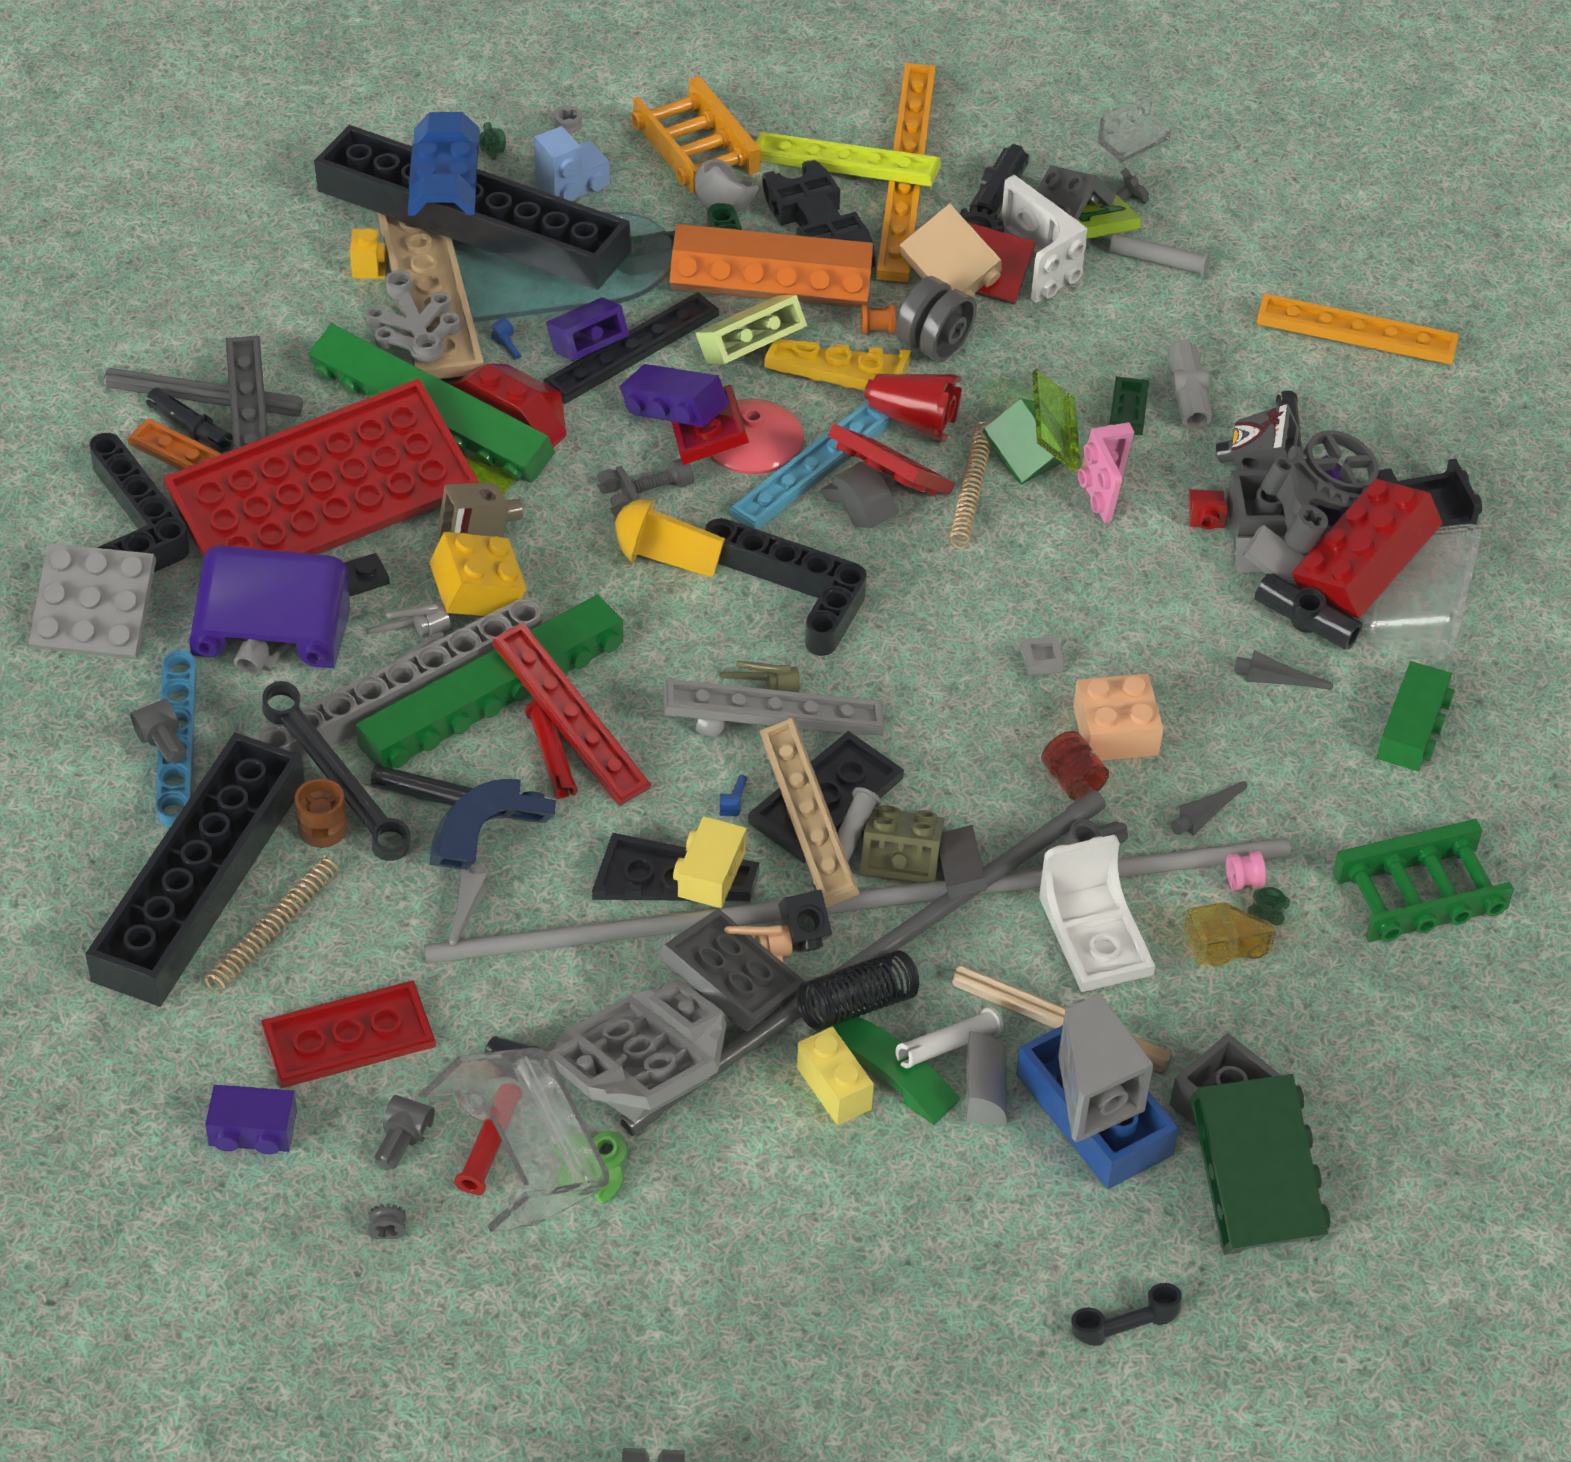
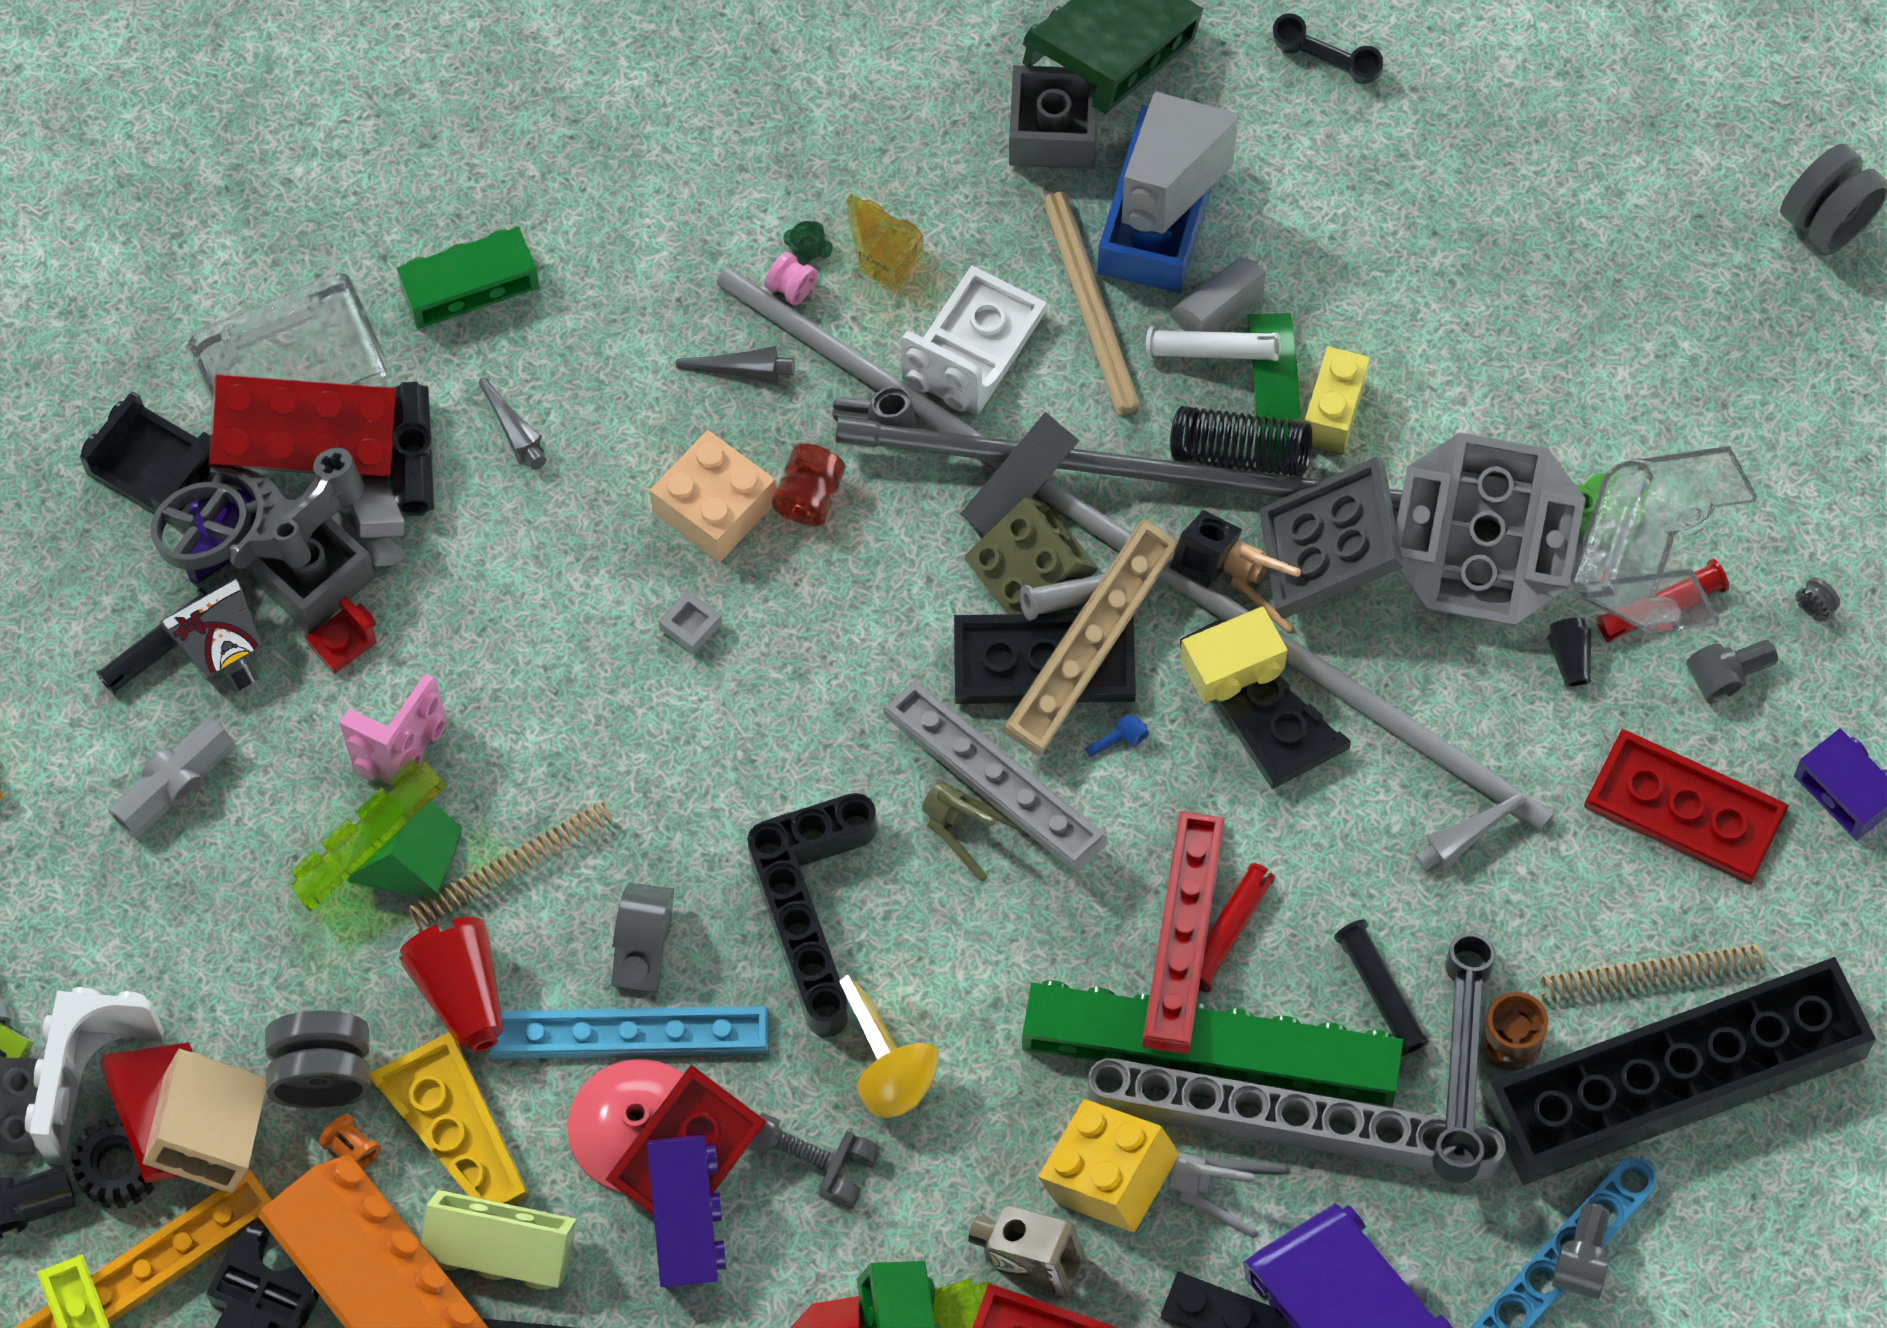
camera: 130 degrees left, 15 degrees up
(458, 831) = (1379, 894): dark blue arch -> none
(890, 461) = (580, 922): red plate -> none
(1129, 403) = (256, 811): dark green plate -> none
(1427, 850) = (665, 183): green fence -> none

